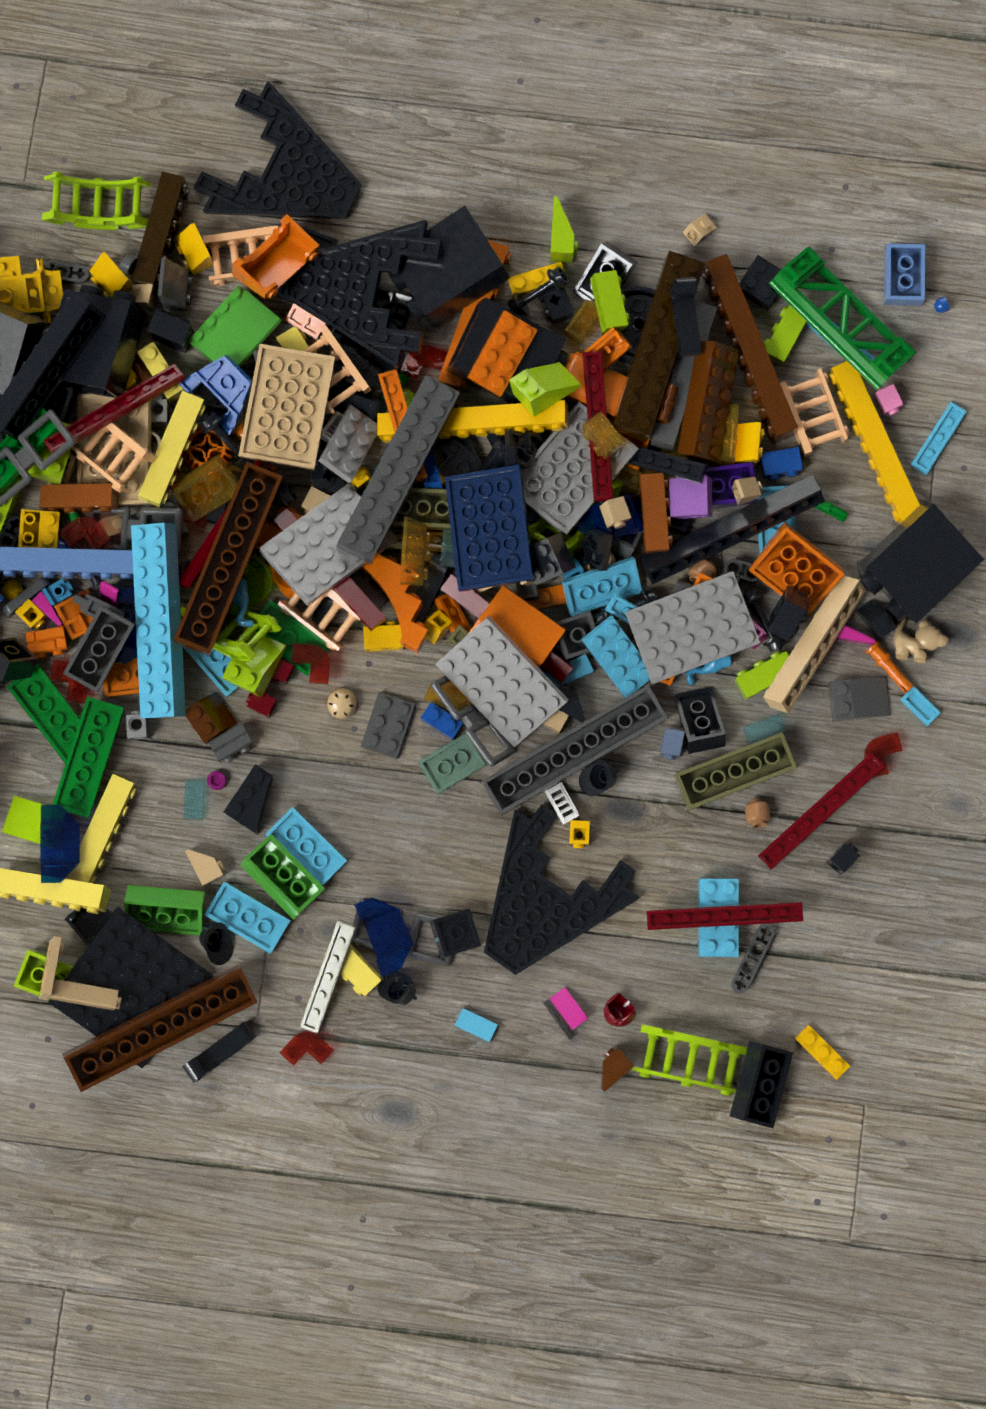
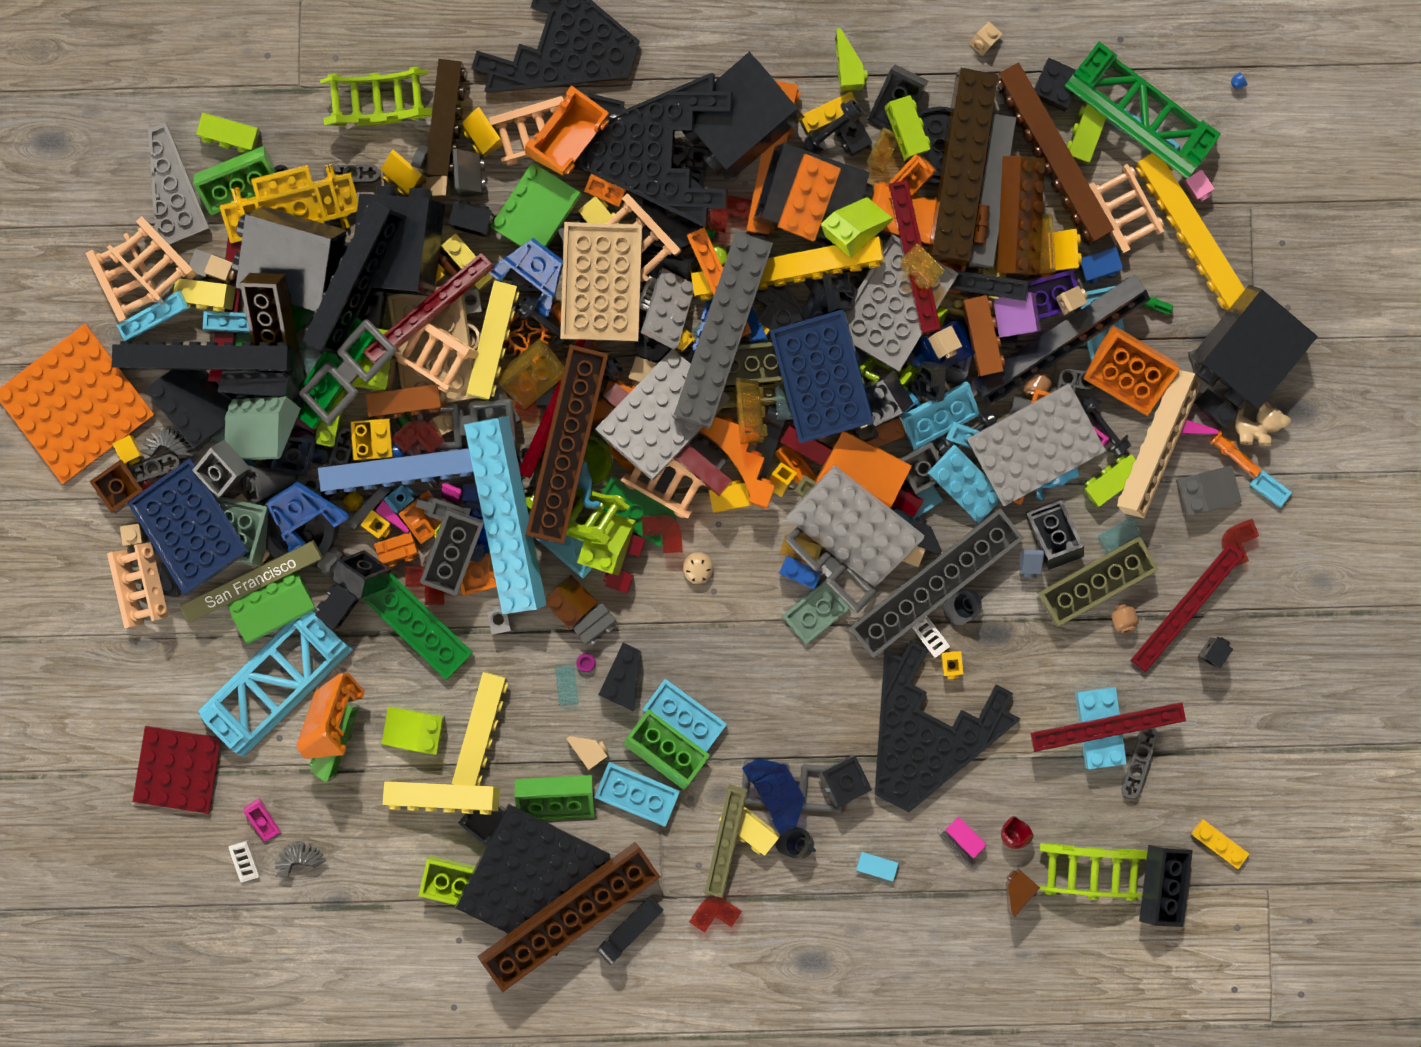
camera: 10 degrees left, 5 degrees up
(58, 843) = (441, 751): clear blue piece -> none
(72, 991) = (477, 895): tan piece -> none
(88, 756) = (456, 659): green plate -> none
(217, 943) = (610, 823): black piece -> none
(387, 725) = (746, 583): dark grey plate -> none
(685, 317) = (987, 134): black beam -> none
(788, 613) = (1129, 417): black brick -> none
(904, 274) = (1197, 56): medium blue brick -> none
(938, 438) = (1253, 216): medium azure tile -> none

